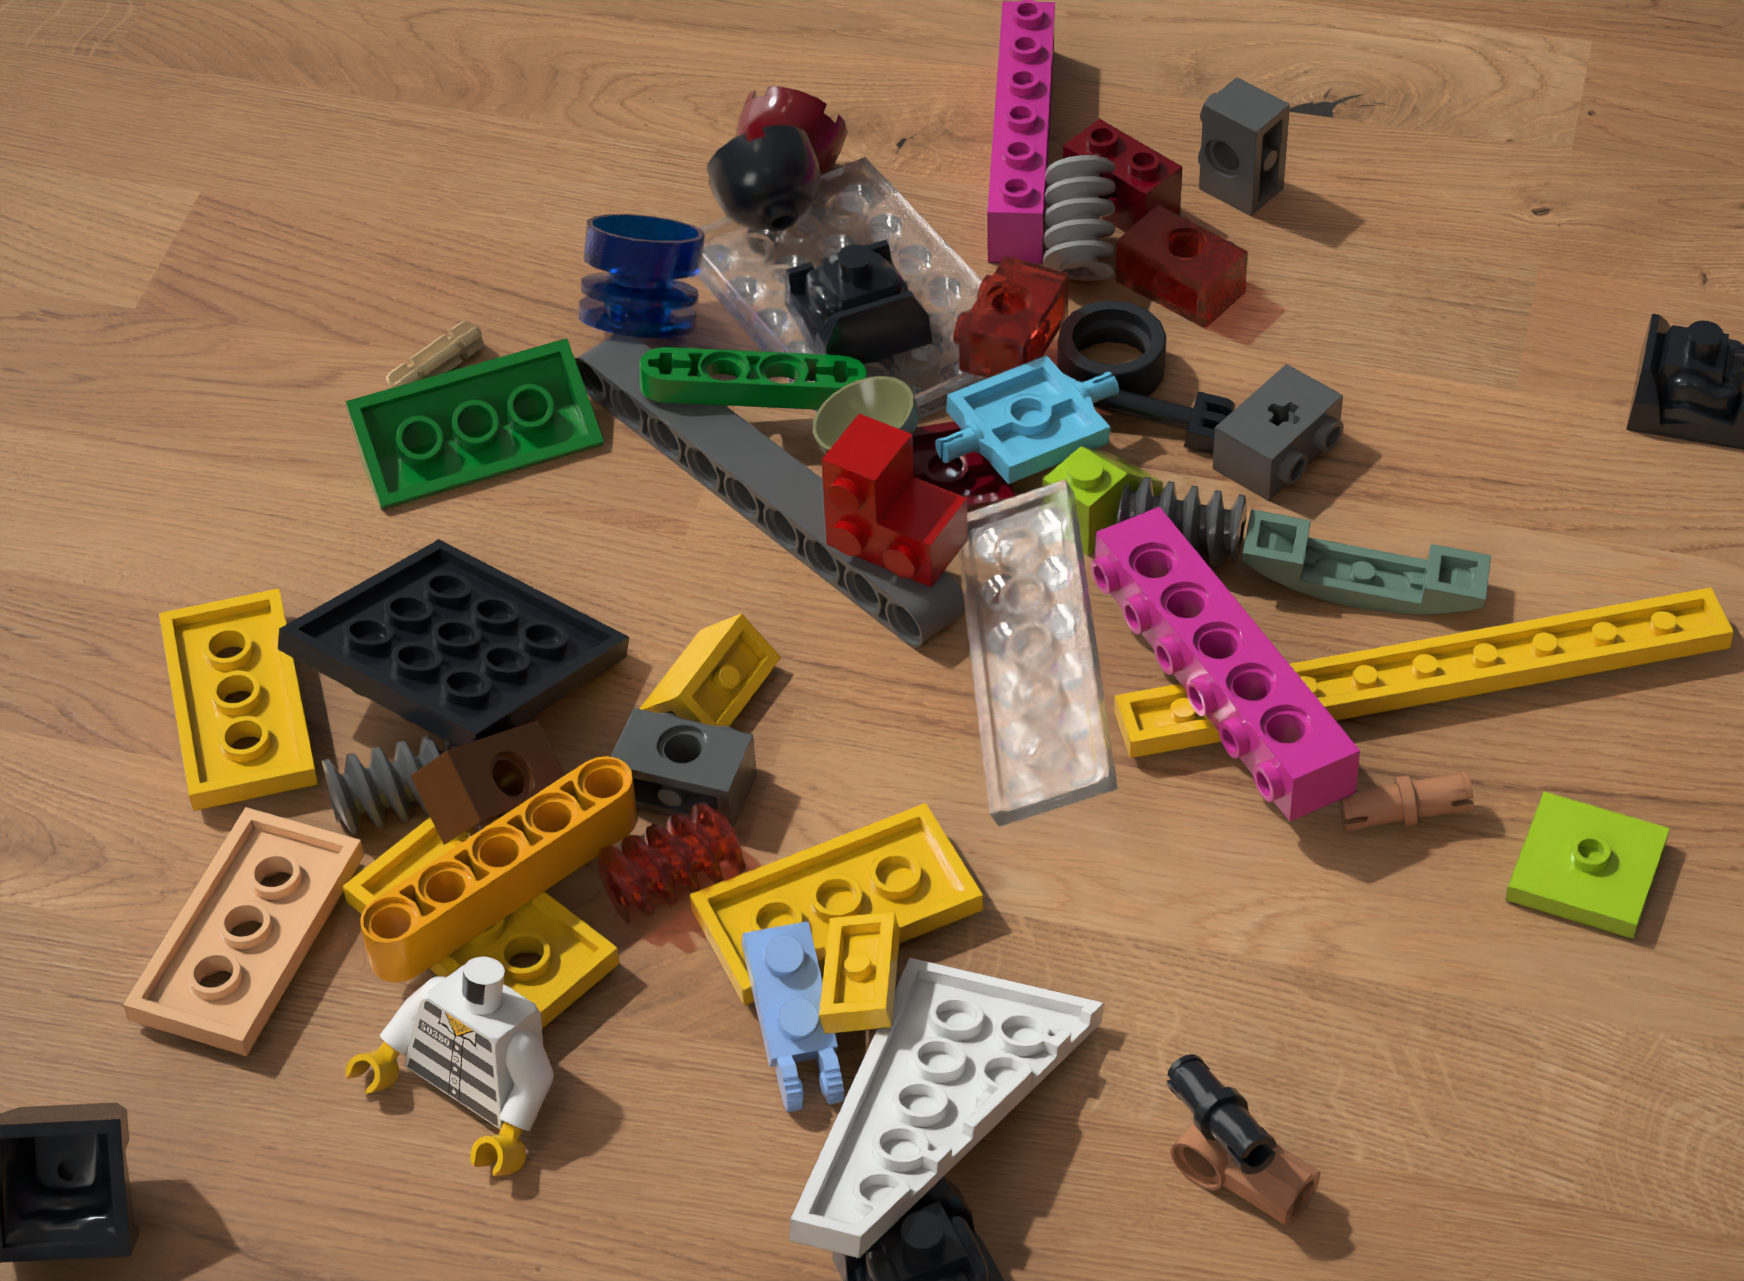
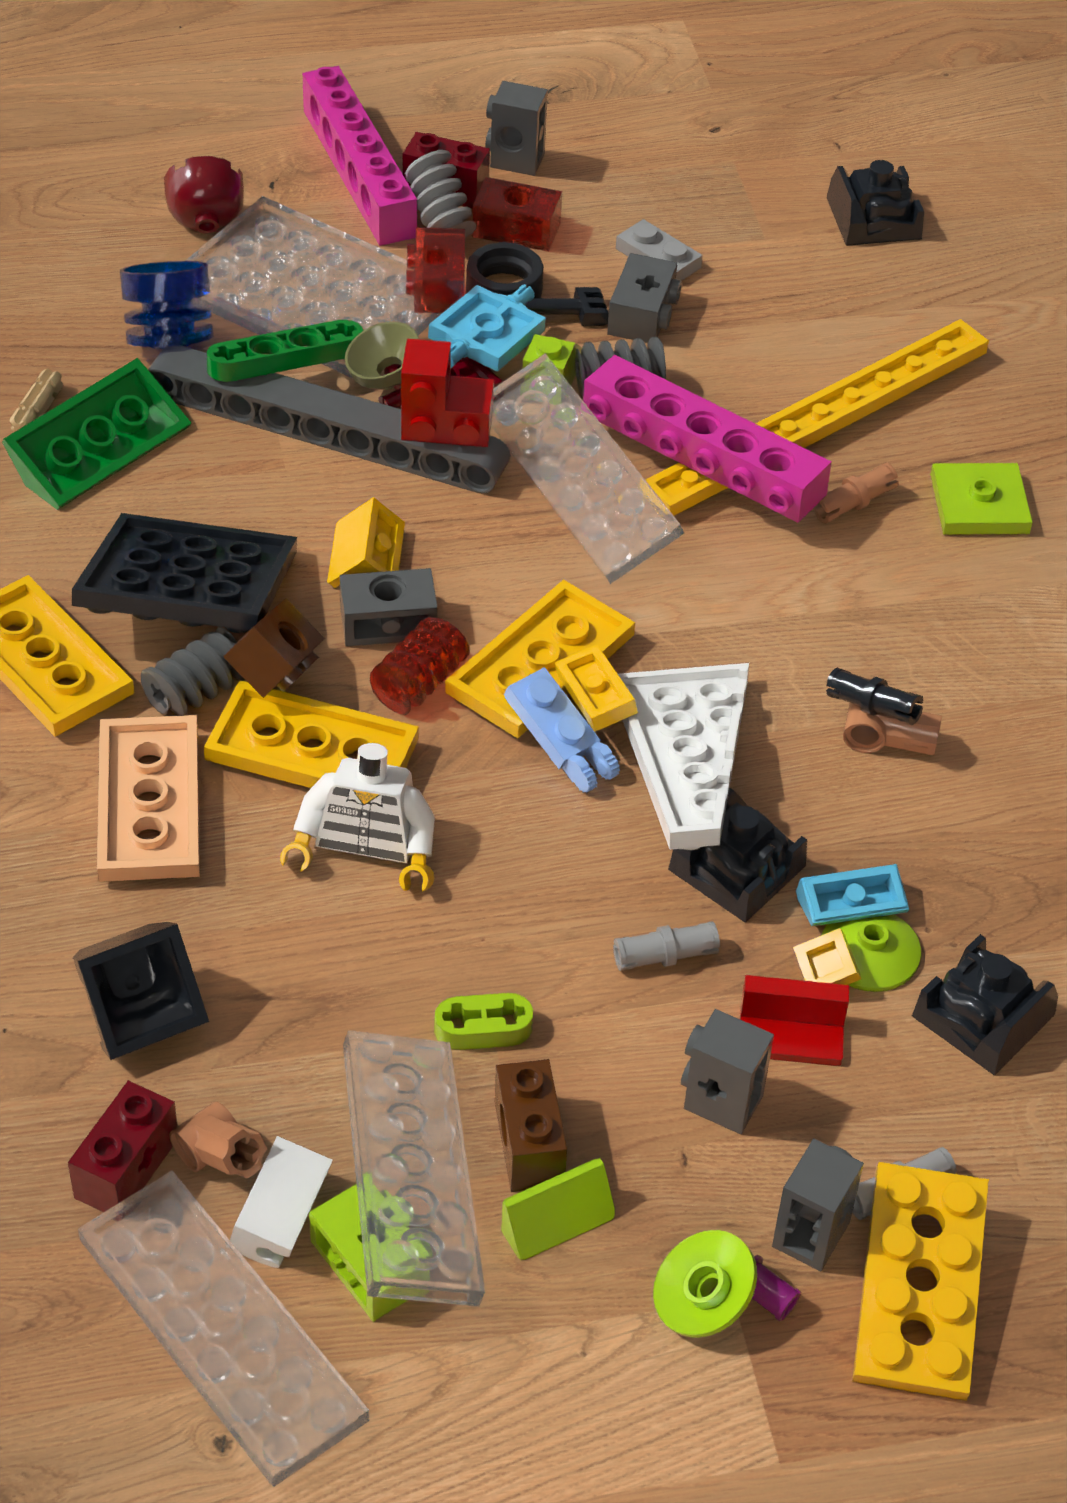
camera: 30 degrees left, 0 degrees up
(499, 869) = (316, 699): light orange beam -> none
(767, 179) = (217, 221): black cylinder -> none
(856, 305) = (325, 286): black brick -> none
(1351, 367) = (653, 242): none -> light grey plate
(1364, 577) = (749, 372): sand green slope -> none

